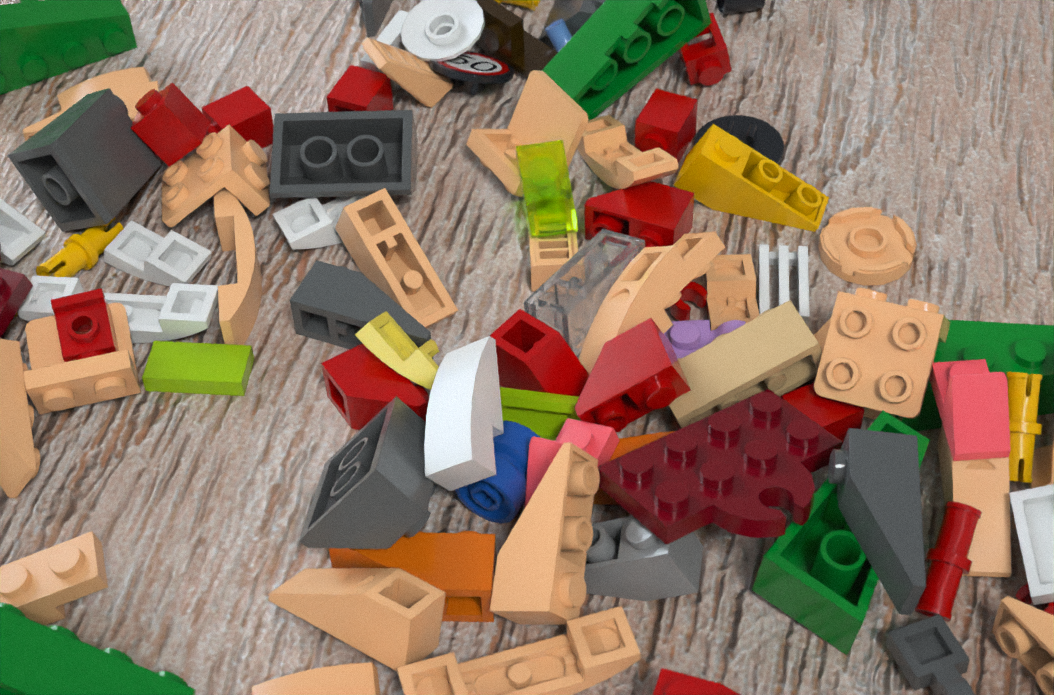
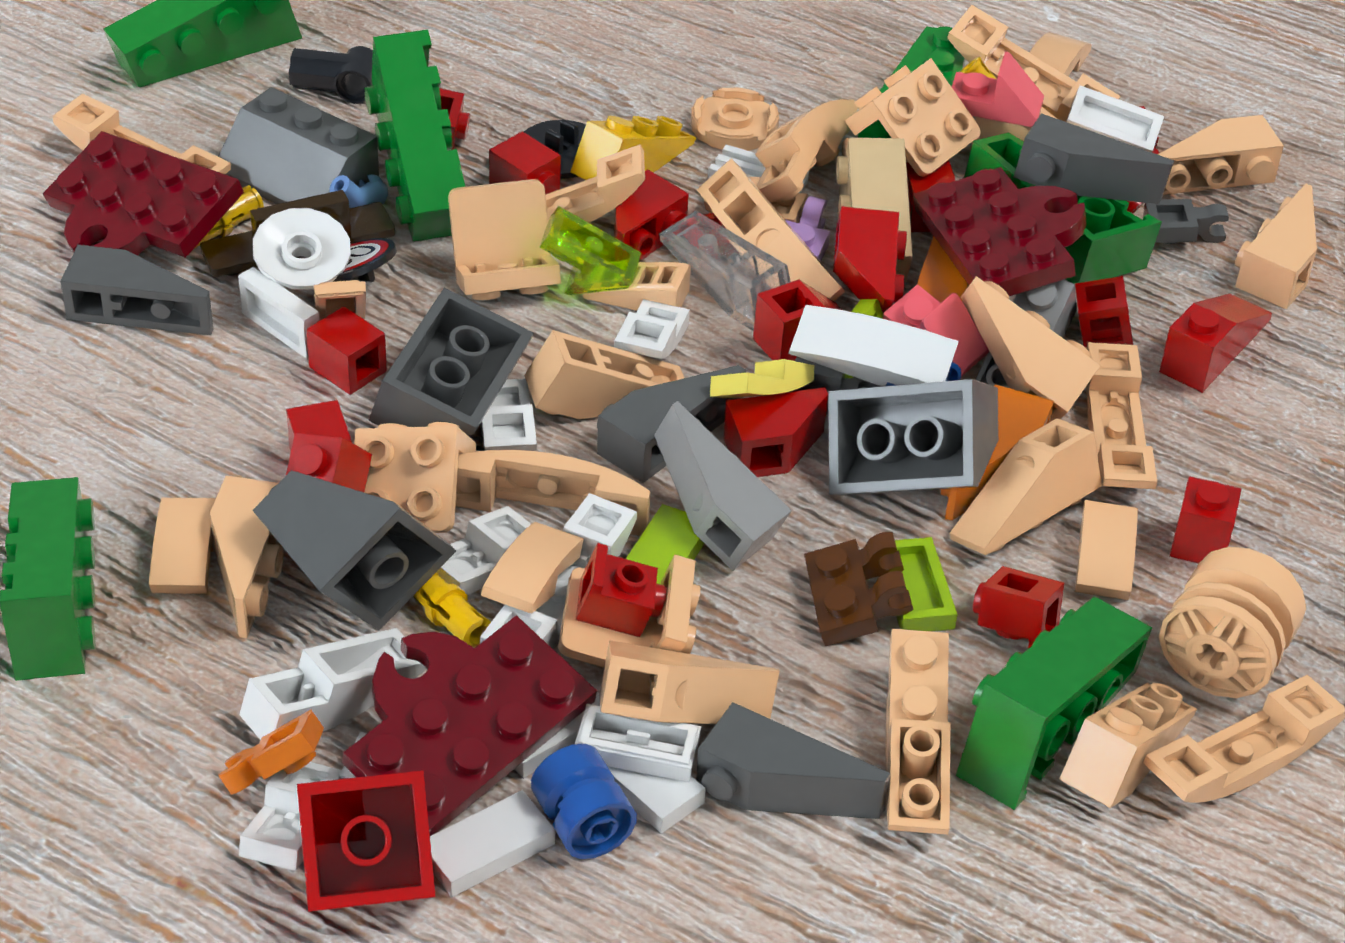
camera: 75 degrees left, 5 degrees down
(120, 276) = (531, 566): none -> light nougat slope
(163, 505) = (841, 589): none -> reddish brown plate
(188, 637) = (1018, 604): none -> red brick
(216, 558) = (927, 587): none -> lime tile
(242, 372) = (720, 495): none -> light grey slope
(468, 274) = (653, 329): none -> white slope
(698, 615) = (1103, 311): none -> red brick
(803, 285) = (799, 146): none -> light nougat slope

